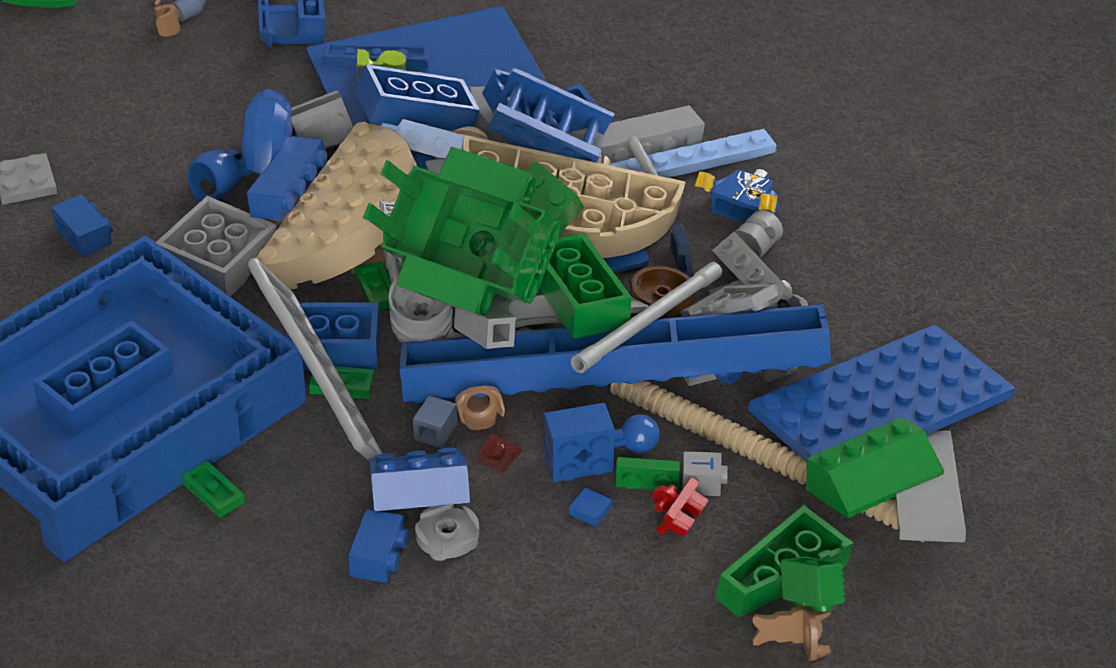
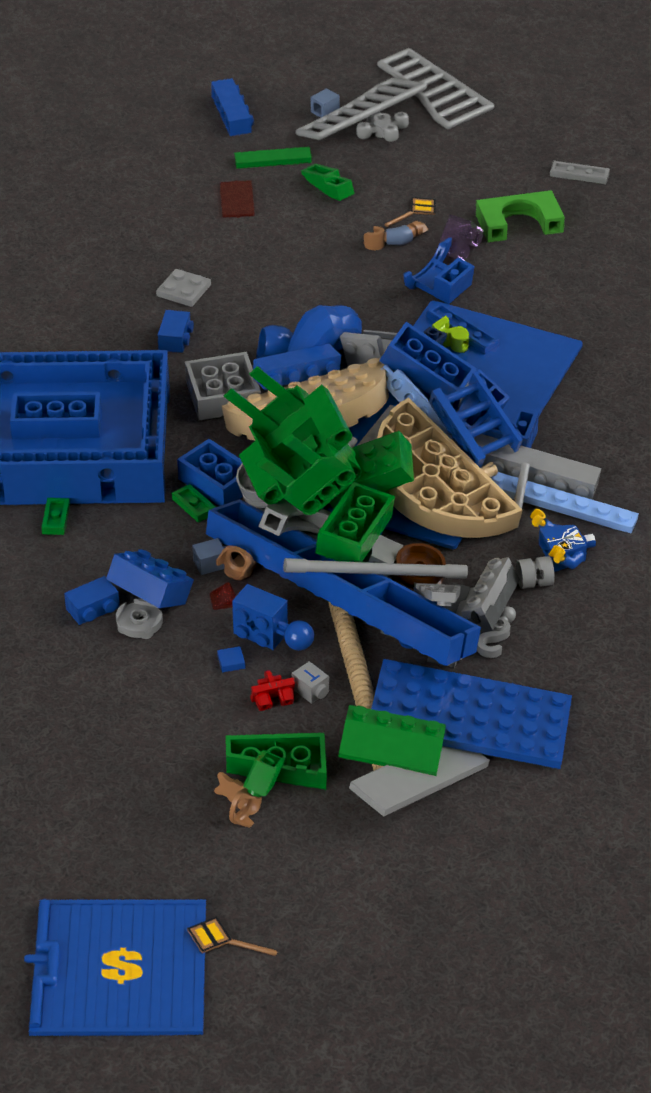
camera: 45 degrees right, 0 degrees up
(312, 351) = (152, 481): light grey bar -> none
(646, 473) = (278, 659): green plate -> none
(680, 249) = (481, 552): dark blue tile -> none

